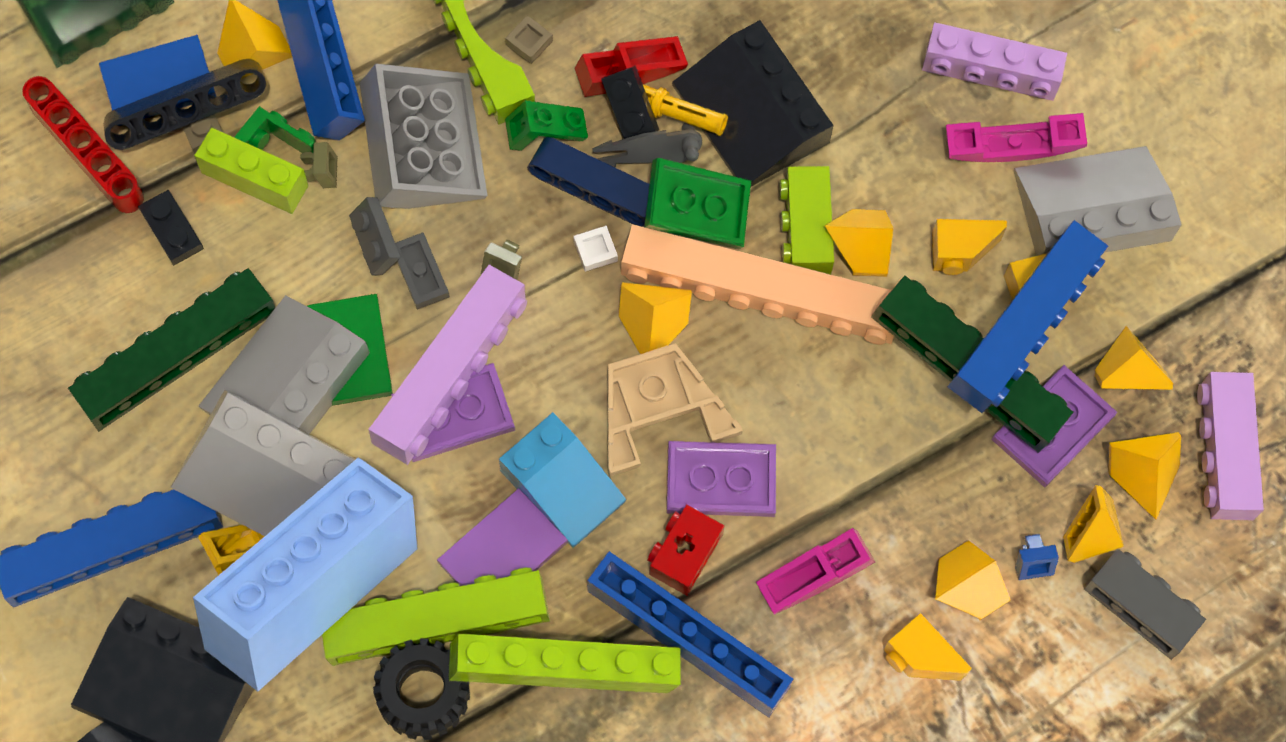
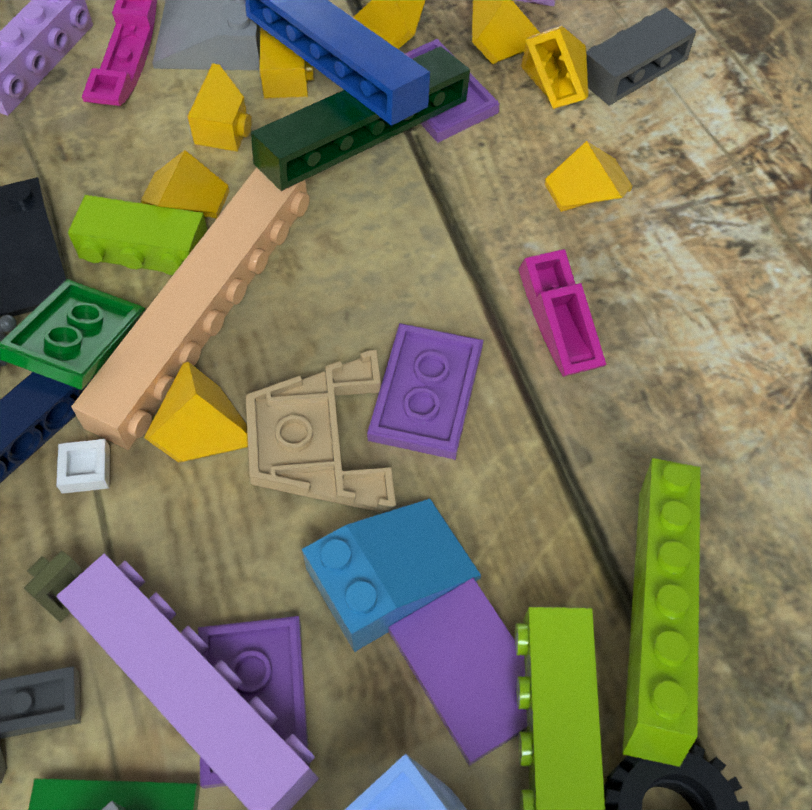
camera: 75 degrees left, 10 degrees down
(683, 570) = (514, 438): red brick -> none
(697, 637) = (623, 454): blue brick -> none
(924, 653) = (666, 233): yellow slope -> none
(1036, 559) = (575, 122): blue tile -> none

